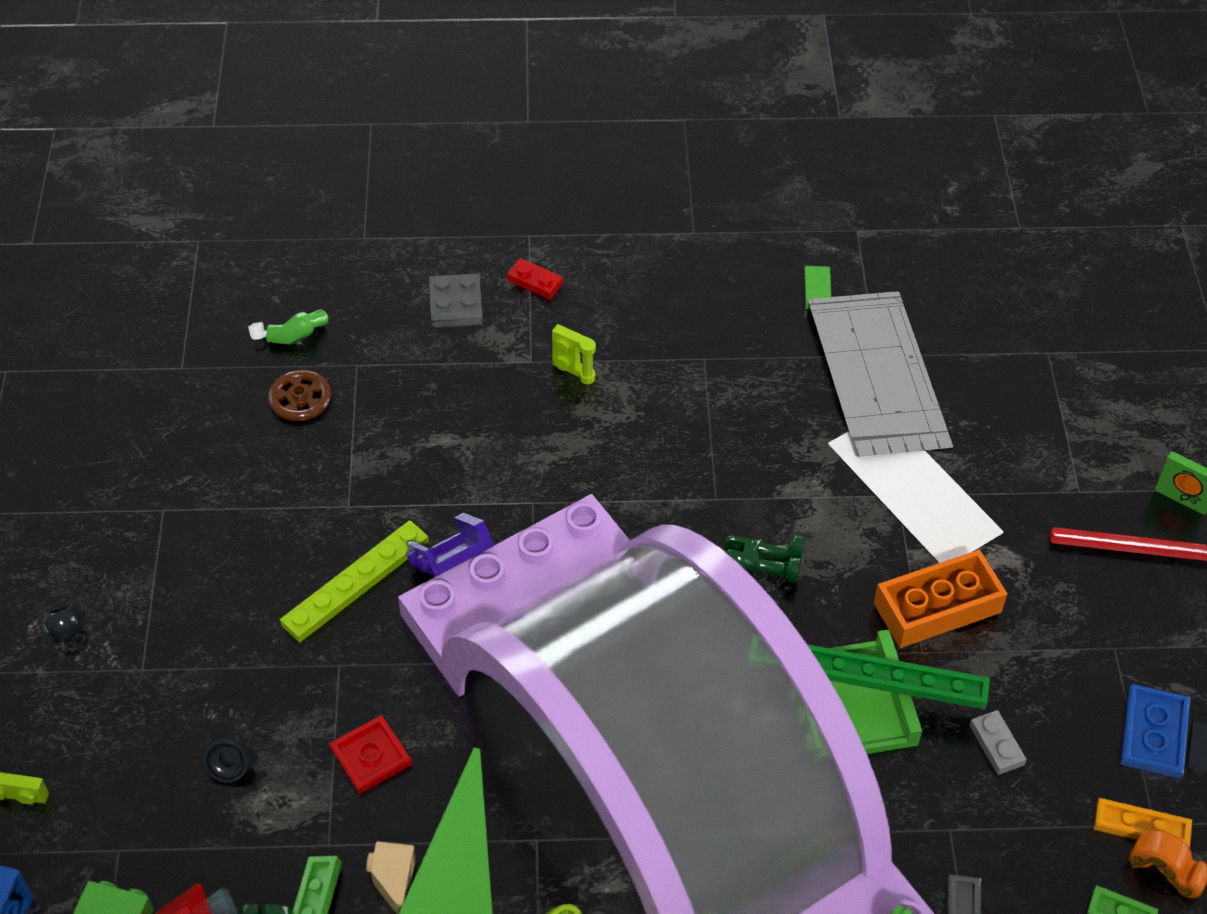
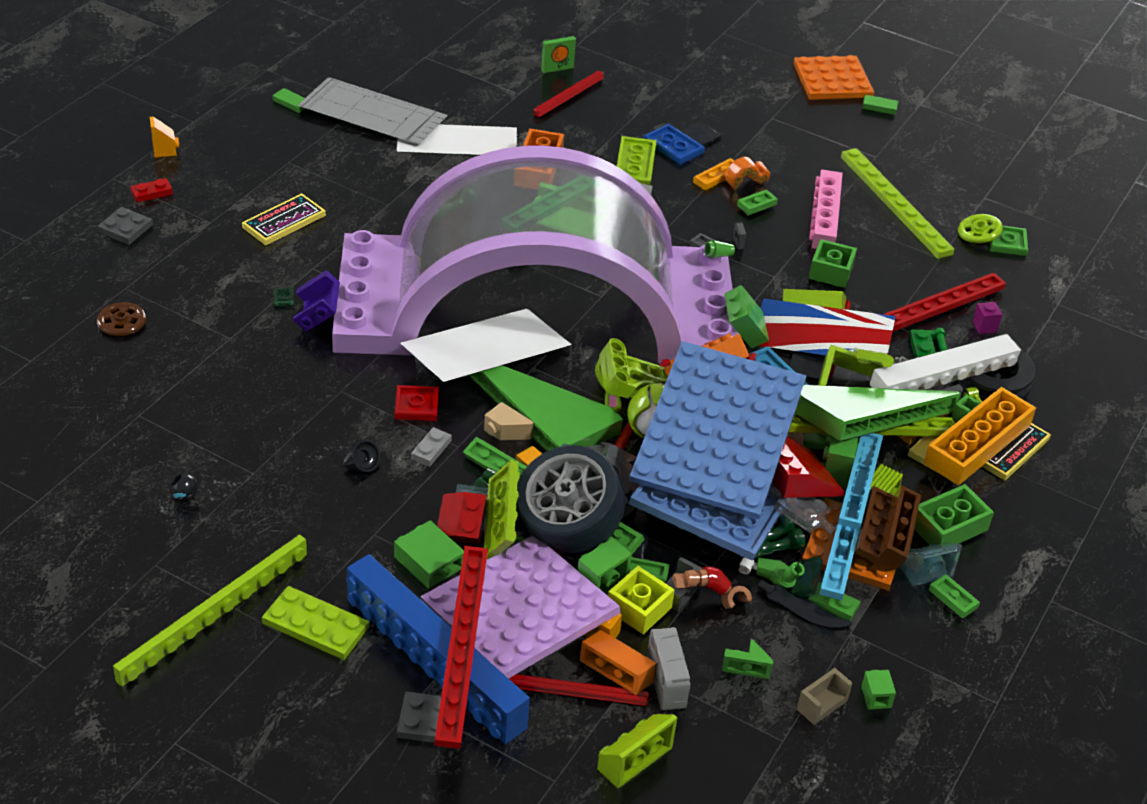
camera: 60 degrees left, 10 degrees down
(292, 331) = (70, 293): bright green arm -> none
(302, 817) = (431, 447): none -> light grey plate
(352, 582) = (290, 358): lime plate -> none
(453, 506) = (283, 296): none -> clear green tile
(498, 761) = (485, 344): none -> white sticker
(566, 353) = (230, 198): lime plate -> none
(591, 421) = (283, 219): none -> tile
(617, 228) = (163, 139): none -> light orange slope
(1062, 707) = (637, 158): none -> lime plate

